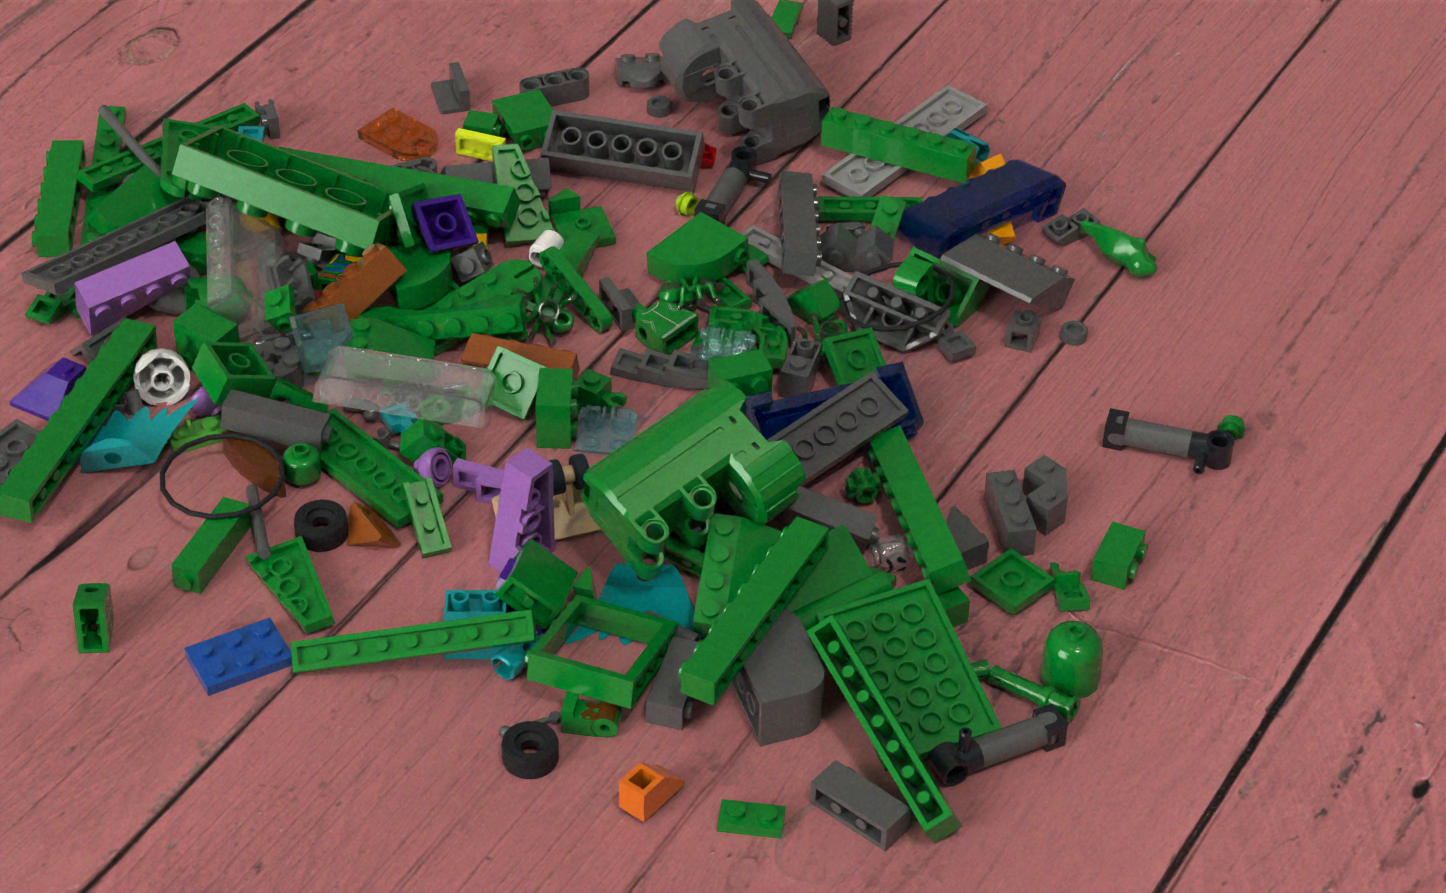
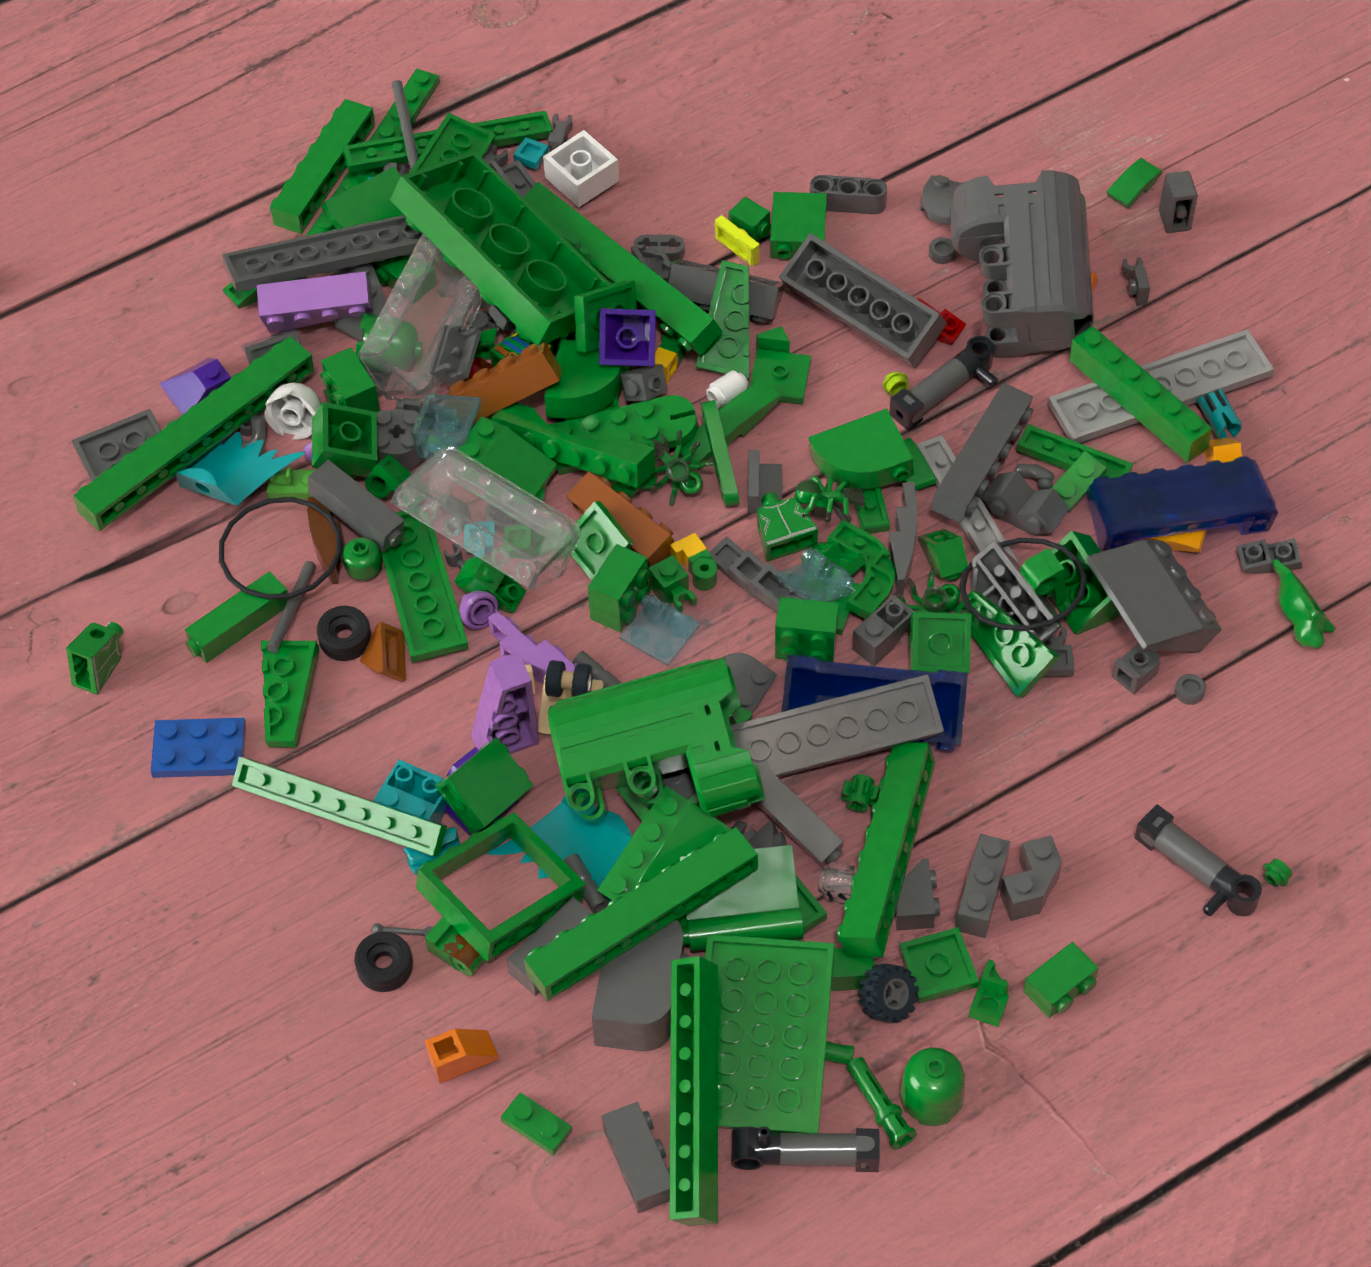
camera: 30 degrees right, 15 degrees up
(279, 307) = (427, 377): green bracket -> none
(308, 128) = (581, 168): none -> white brick
(400, 136) = (672, 196): clear orange plate -> none
(427, 518) = (436, 665): green hinge -> none
(452, 94) = (750, 162): dark grey panel -> none
(585, 585) = (533, 807): green slope -> none
(604, 365) = (697, 560): none -> leg
(839, 79) = (1139, 283): none -> dark grey plate
(920, 348) = (1015, 654): none -> green wing
(989, 609) = (890, 1003): none -> black wheel

